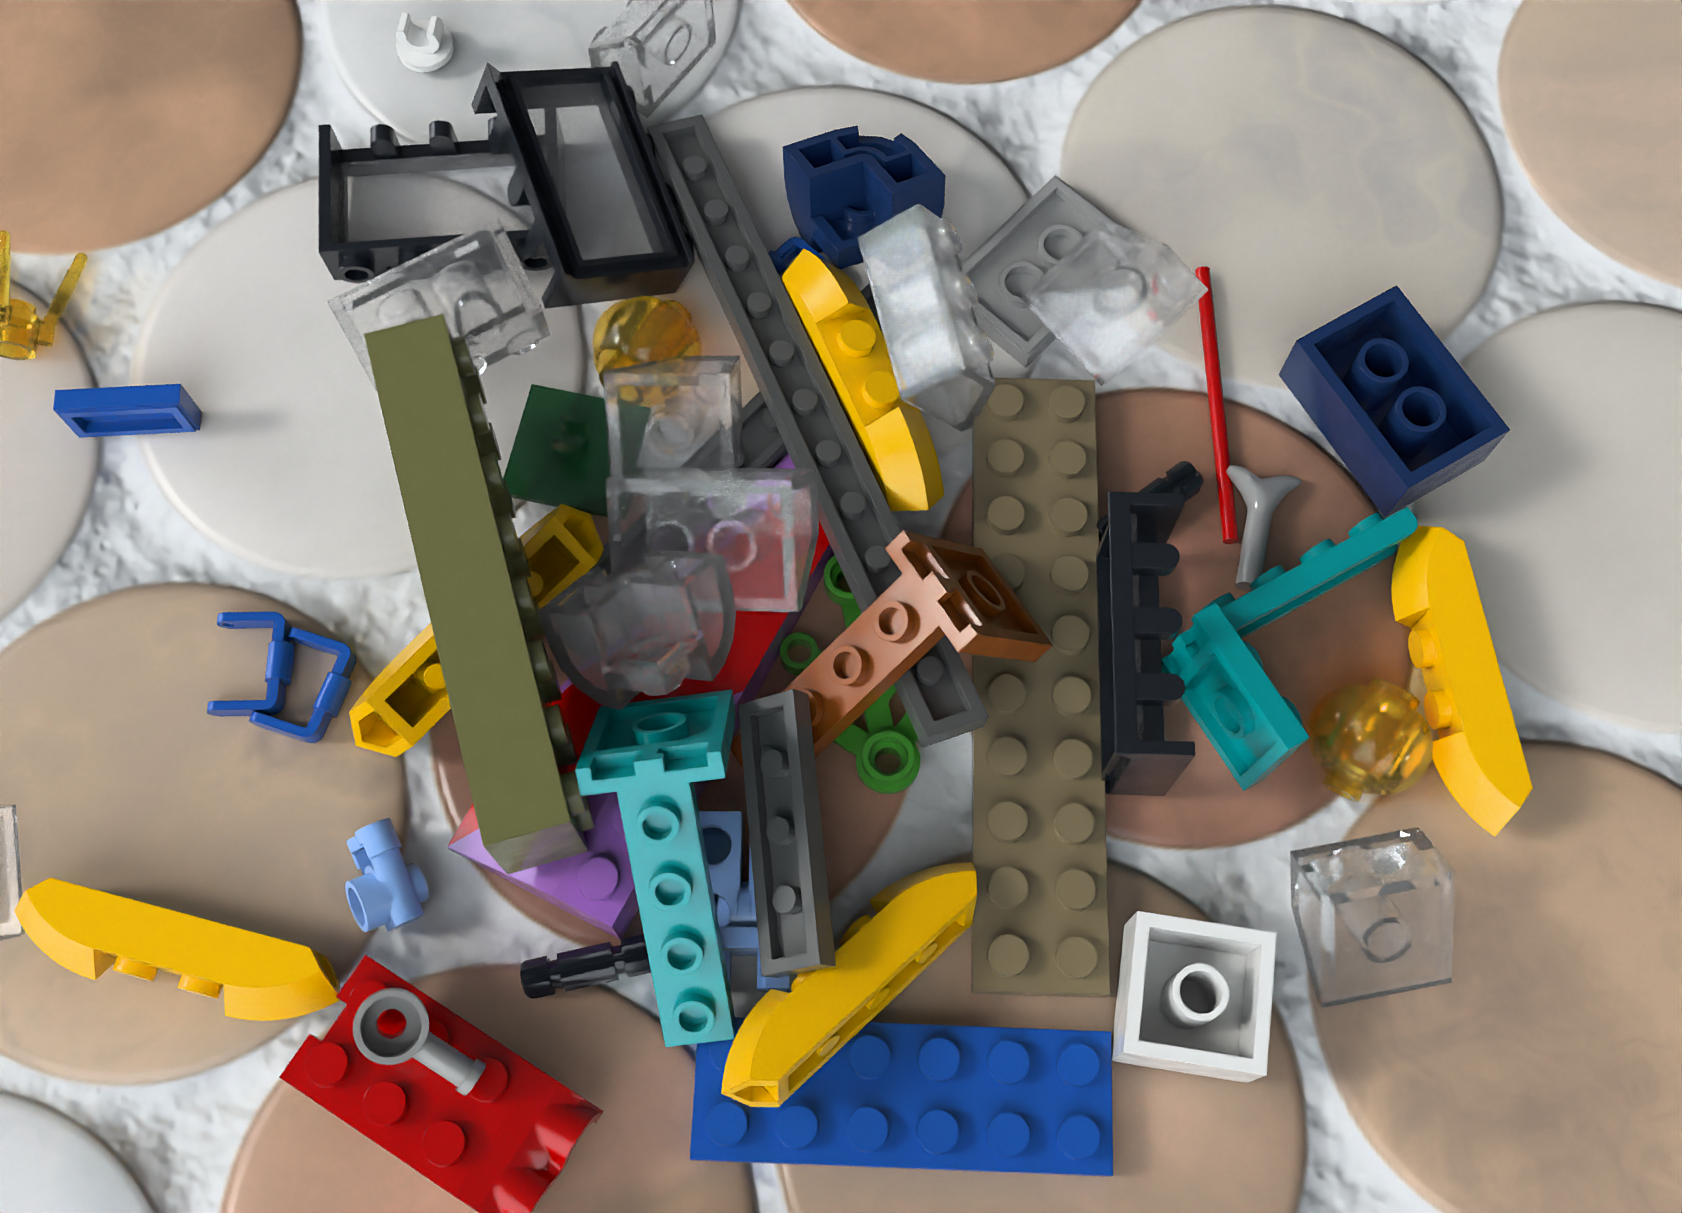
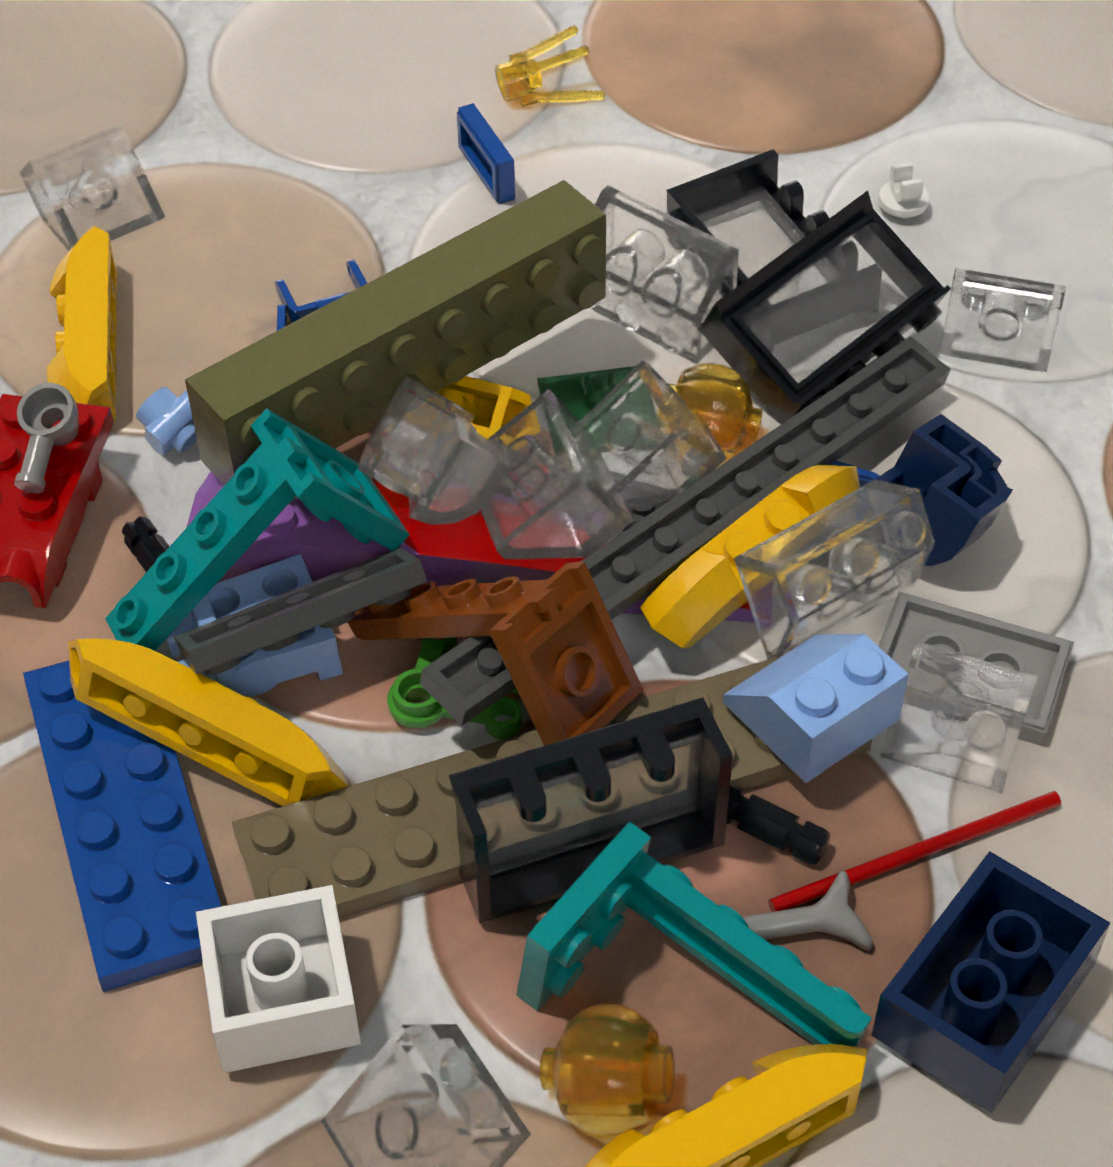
camera: 70 degrees right, 20 degrees down
(1066, 402) = (821, 700): none -> light blue slope

